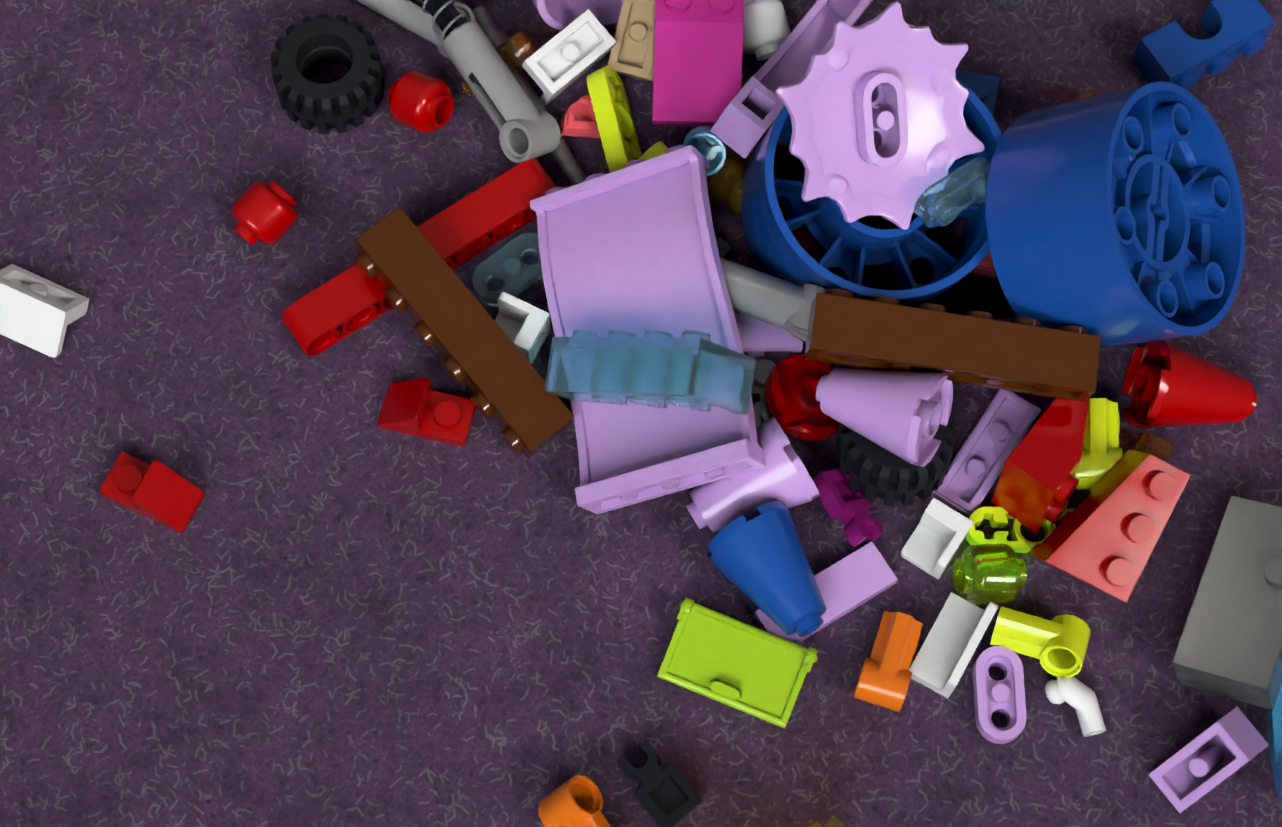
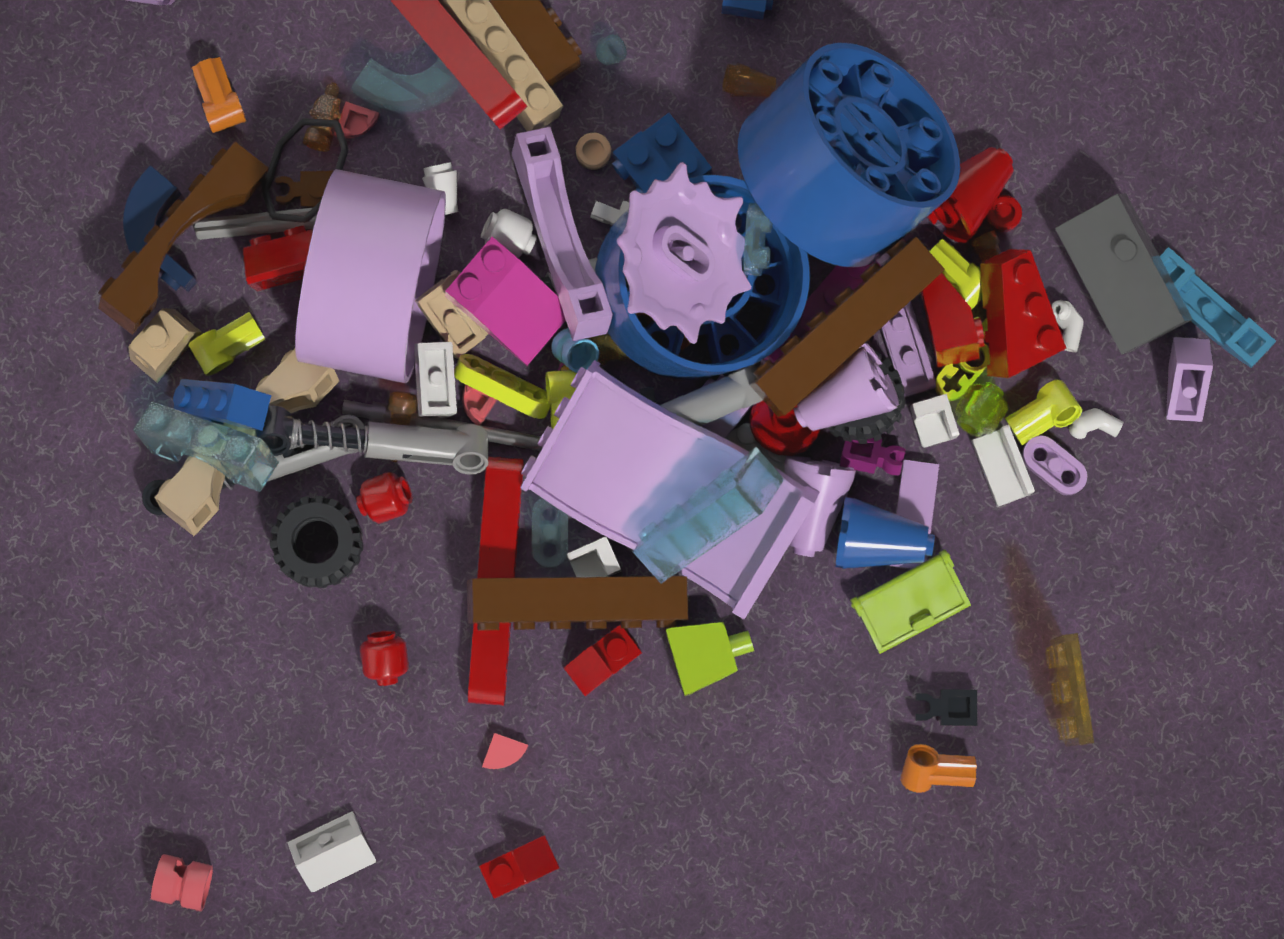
camera: 50 degrees left, 15 degrees up
(258, 391) = (503, 752): none -> coral tile
(511, 500) = (705, 653): none -> lime torso
(886, 671) = (989, 520): orange piece -> none
(1153, 595) = (1070, 323): none -> white arm
(1195, 448) = (1004, 214): none -> red tile

